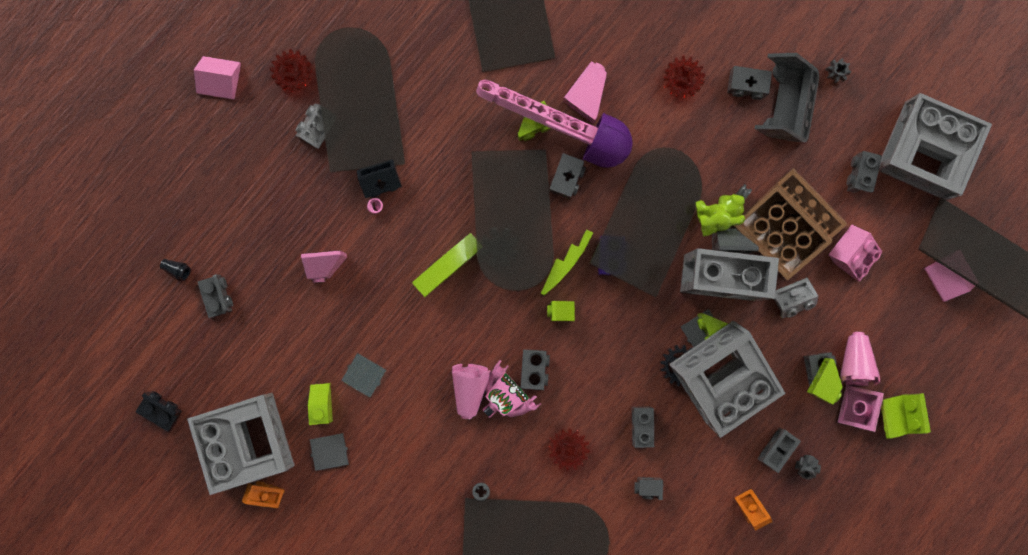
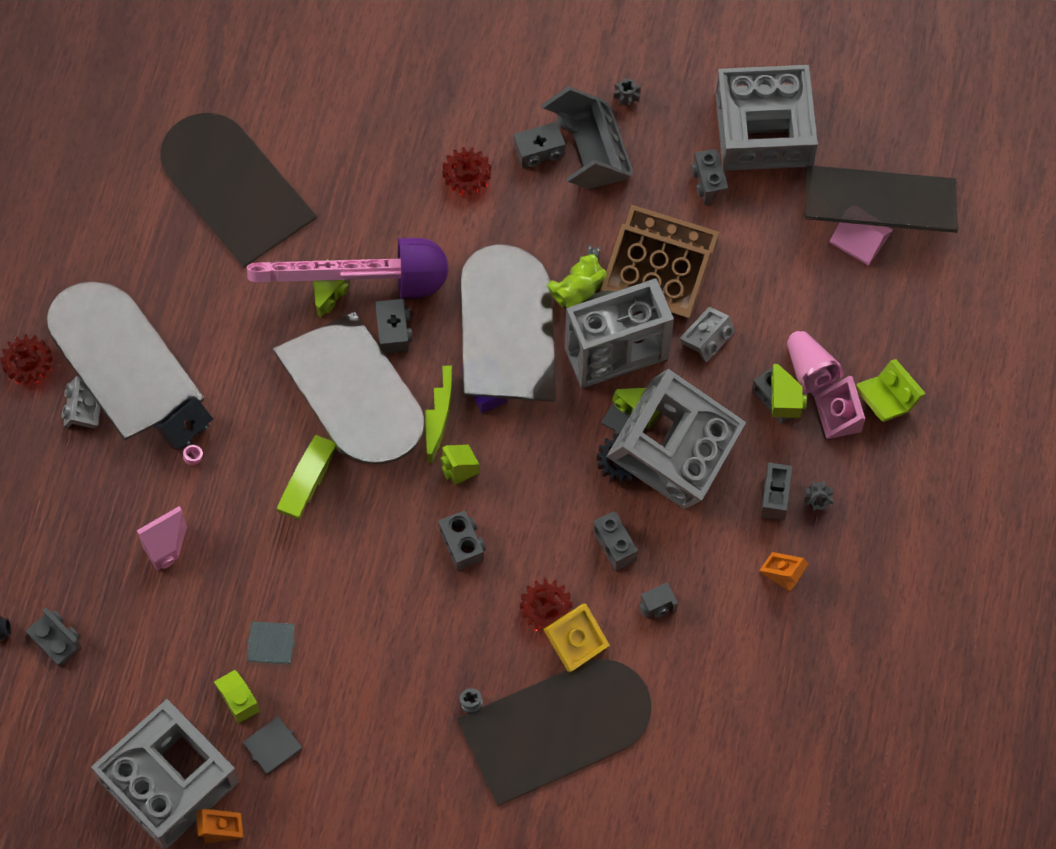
camera: 30 degrees left, 20 degrees down
(158, 410) = (47, 794): black bracket -> none
(469, 388) = (399, 593): bright pink cone -> none
(506, 395) = (444, 581): bright pink torso -> none
(577, 486) = (576, 637): none -> yellow plate
(587, 92) = (369, 232): bright pink slope -> none
(856, 252) = (746, 257): bright pink slope -> none

